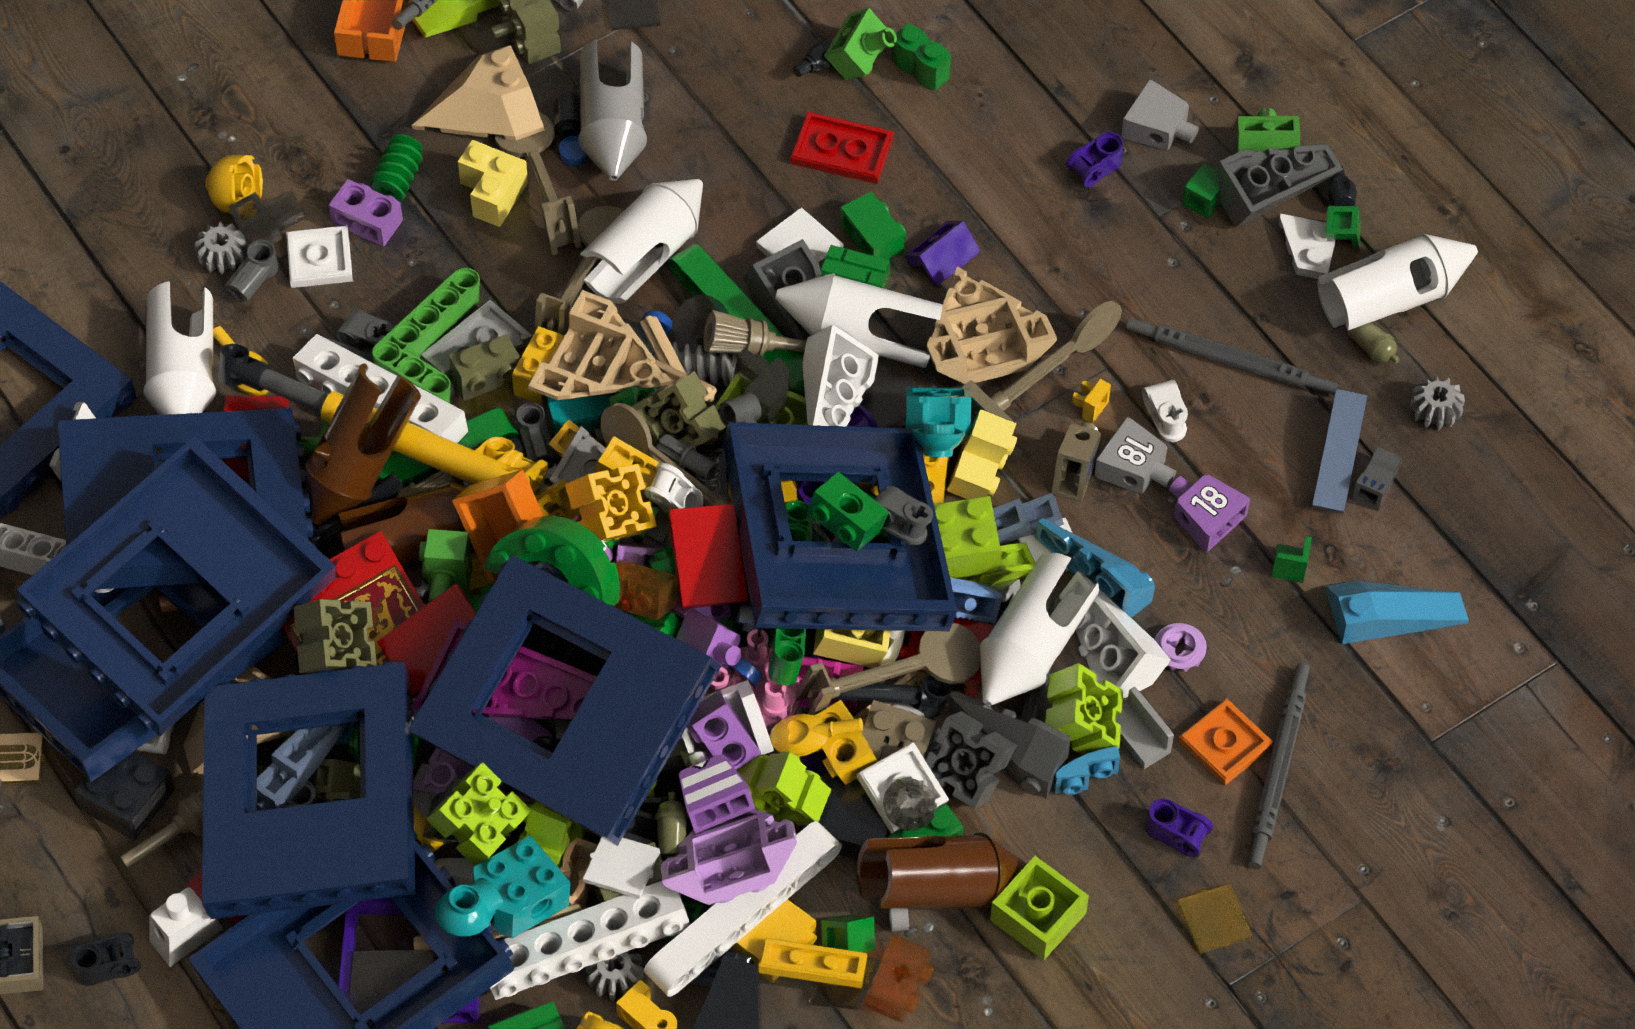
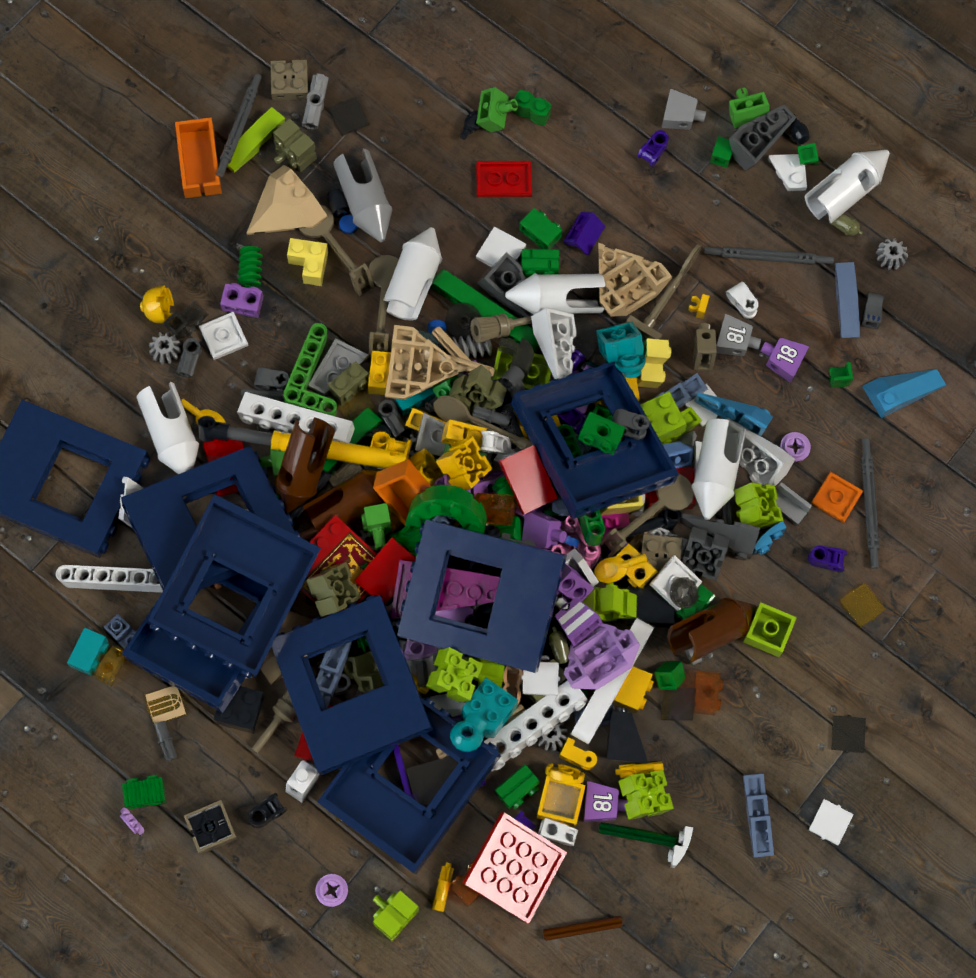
camera: 20 degrees left, 15 degrees up
(813, 963) = (660, 701): yellow tile -> none

